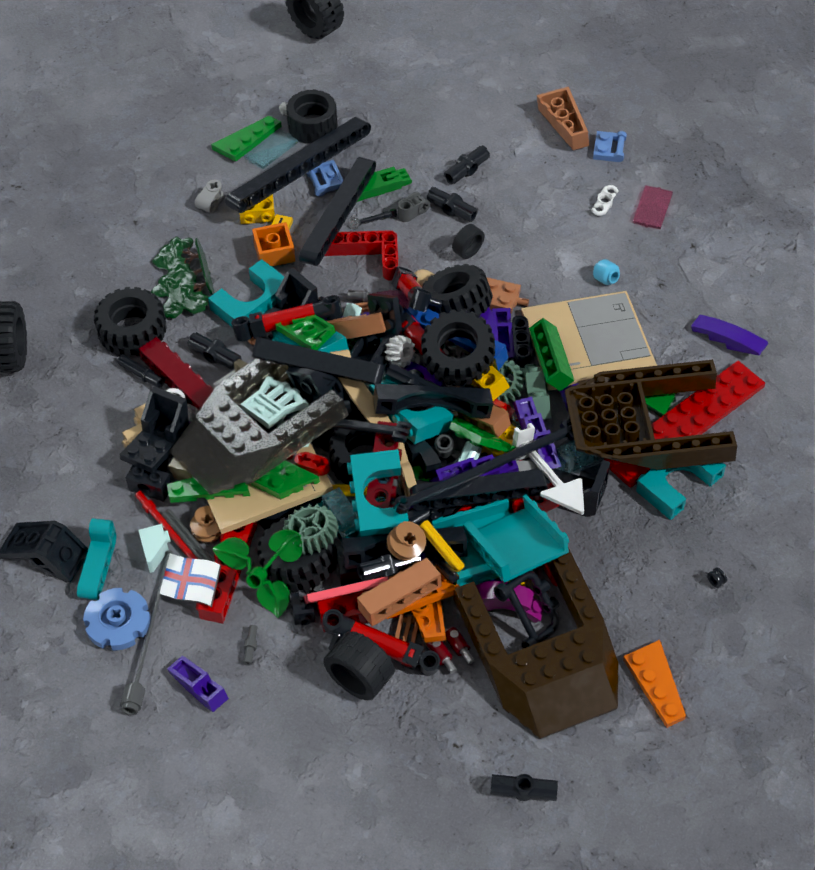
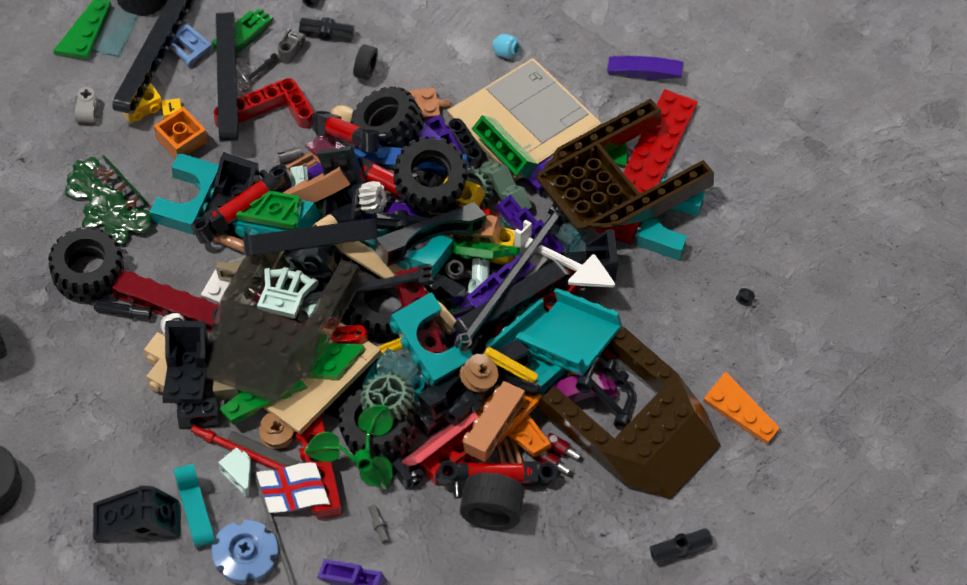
camera: 30 degrees left, 5 degrees up
(213, 350) = (183, 262): black piece -> none

